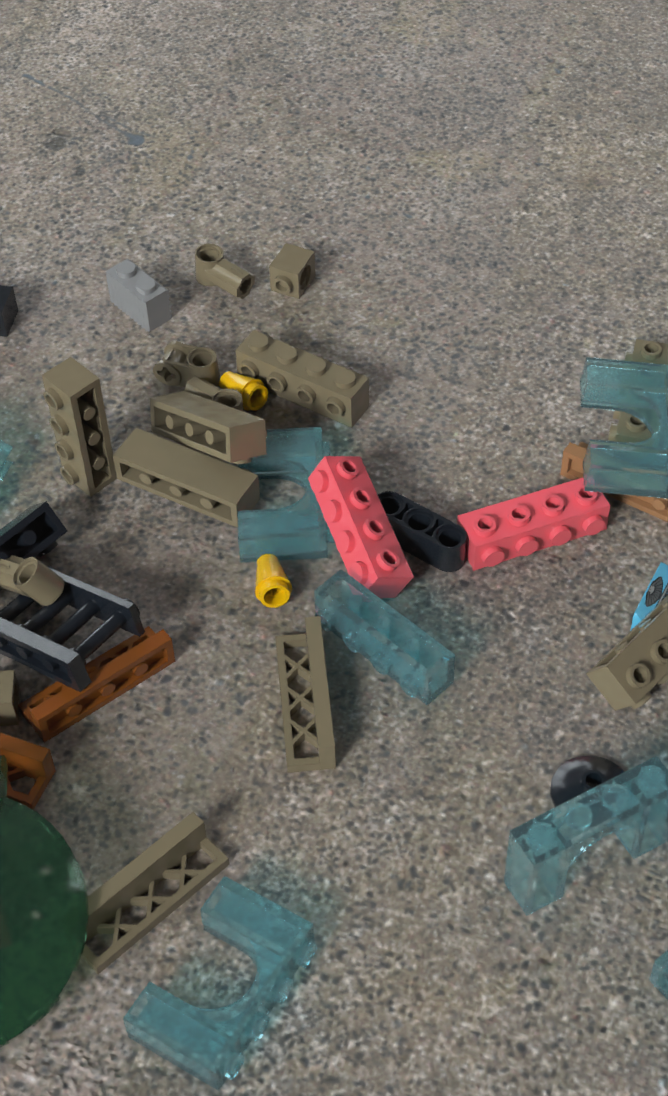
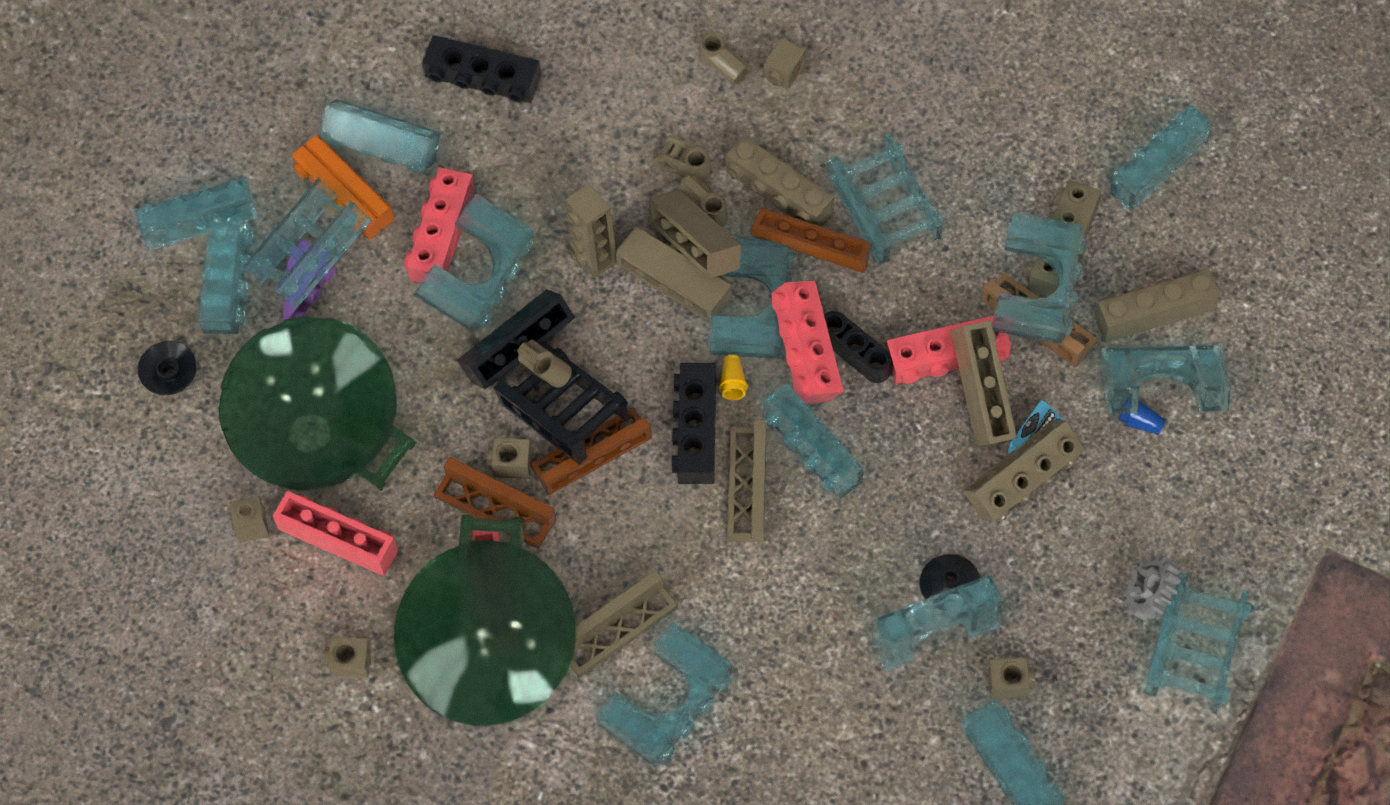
camera: 10 degrees right, 15 degrees up
(138, 295) = (647, 77): light grey brick -> none
(230, 636) = (697, 467): none -> black brick
(252, 390) = (729, 187): yellow cone -> none
(355, 423) = (812, 239): none -> dark orange fence
(412, 405) = (868, 220): none -> clear light blue fence
(589, 544) = (983, 383): none -> dark tan brick

